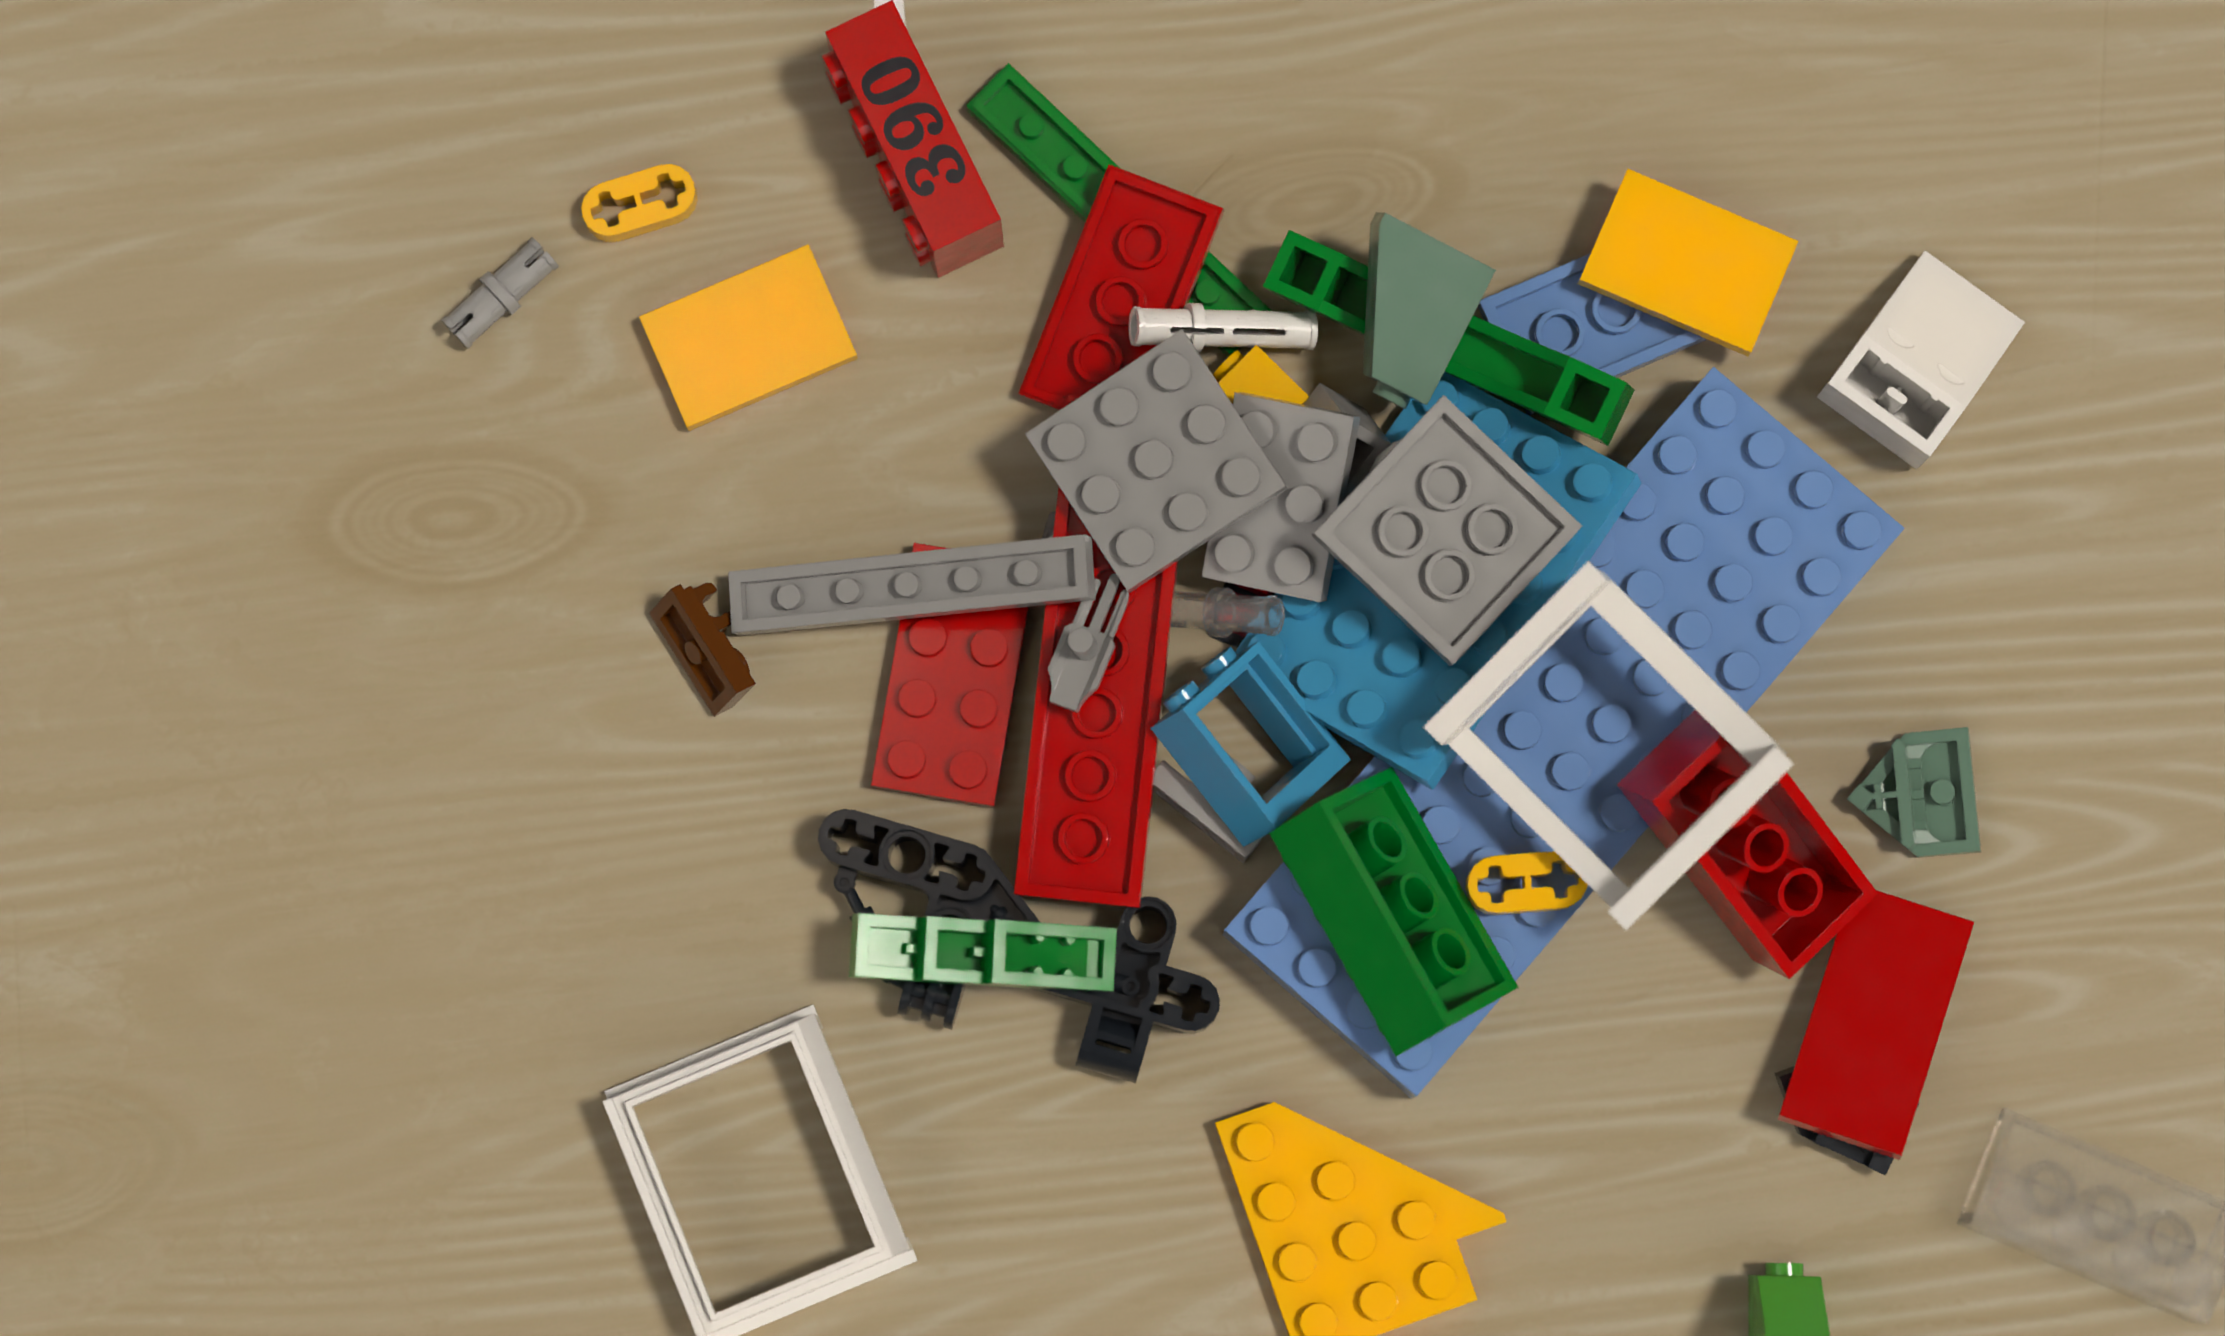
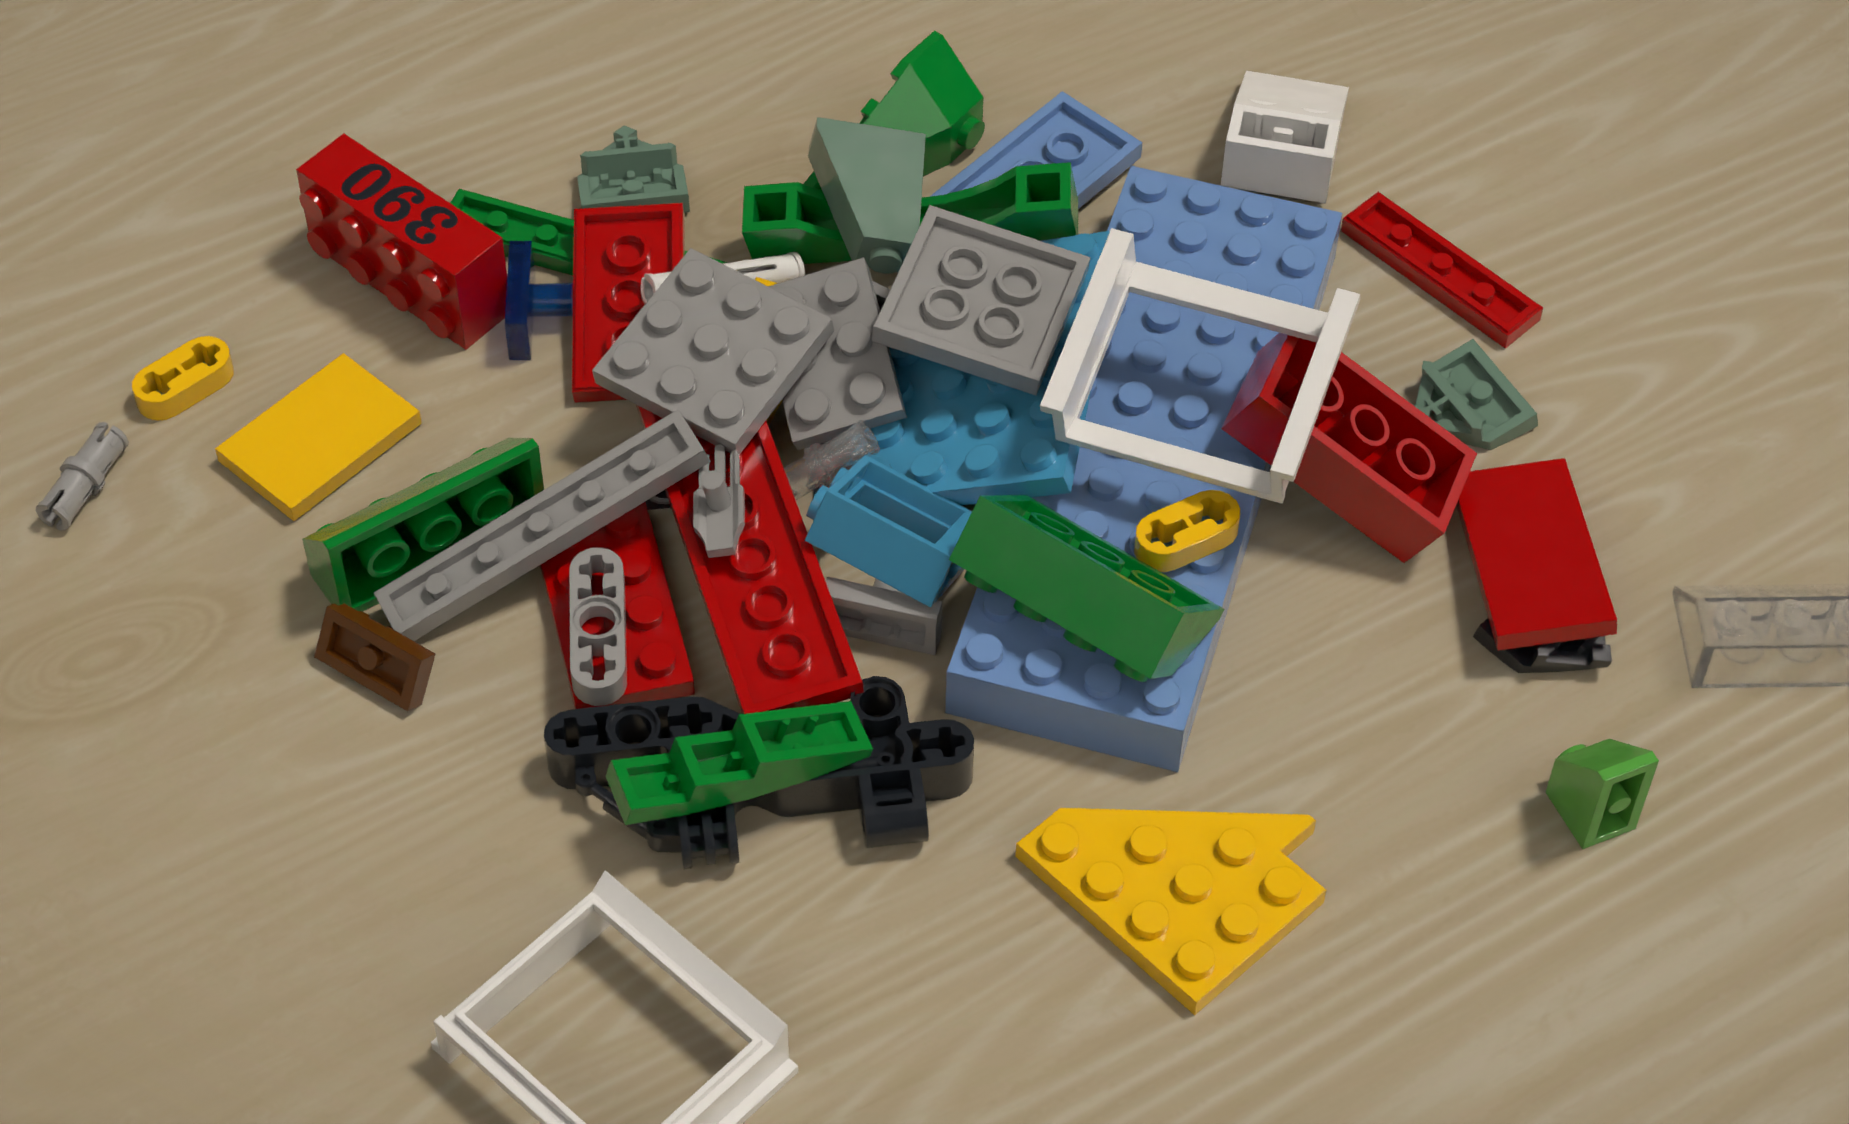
camera: 25 degrees left, 30 degrees down
(805, 511) = (420, 521): none -> green slope
(952, 679) = (611, 644): none -> light grey beam
(1020, 257) = (529, 300): none -> clear blue tile
(1194, 124) = (632, 174): none -> sand green slope
(1535, 191) = (930, 98): none -> green wedge
(1688, 262) = (1071, 121): yellow tile -> none
(1991, 609) = (1442, 269): none -> red tile

